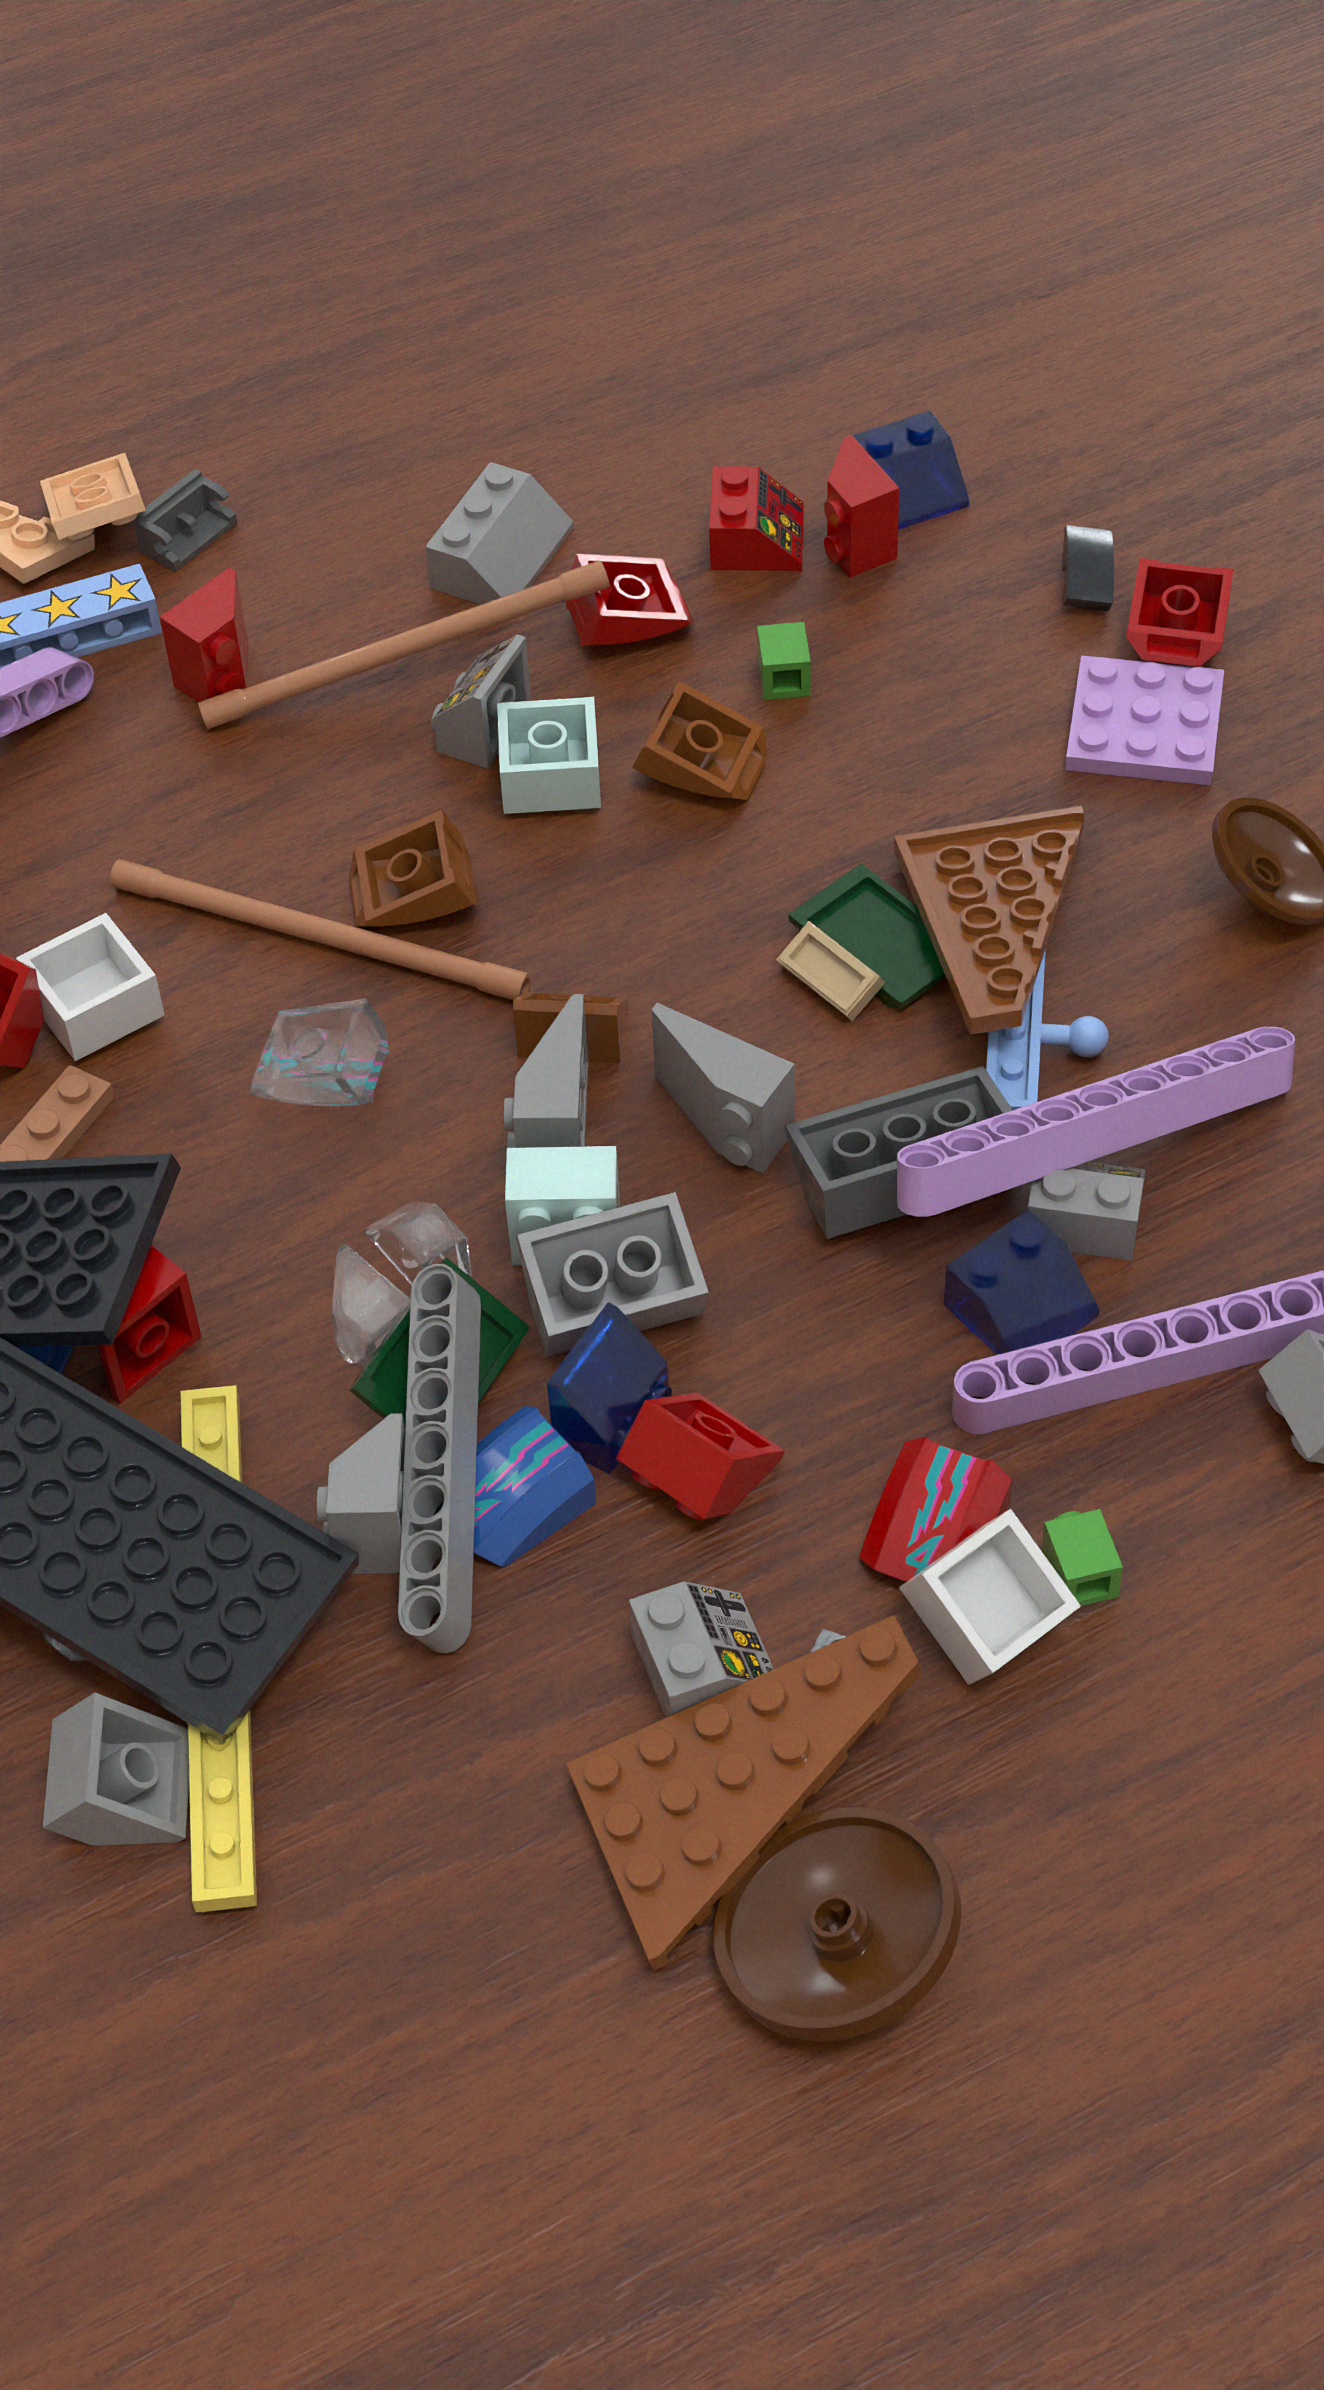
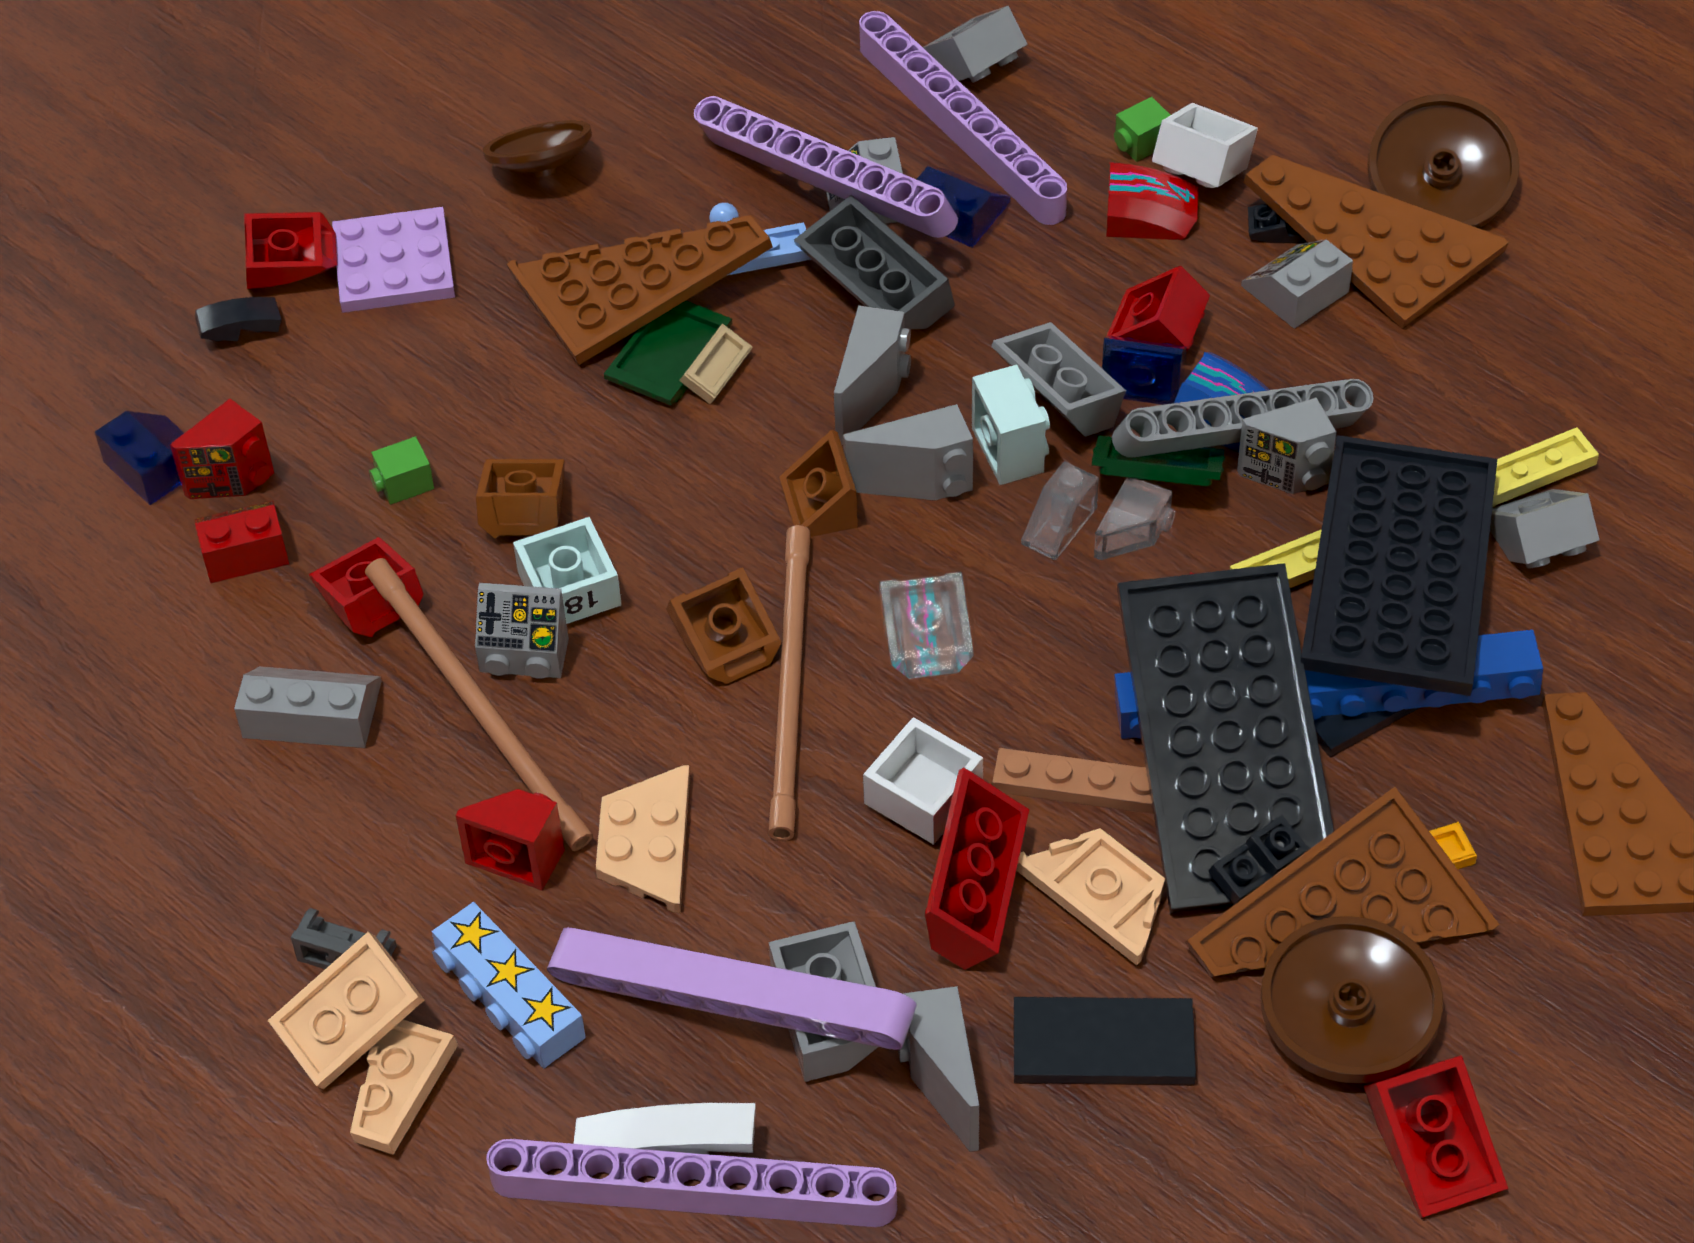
camera: 110 degrees left, 0 degrees up
(178, 769) = (646, 837): none -> light nougat wing

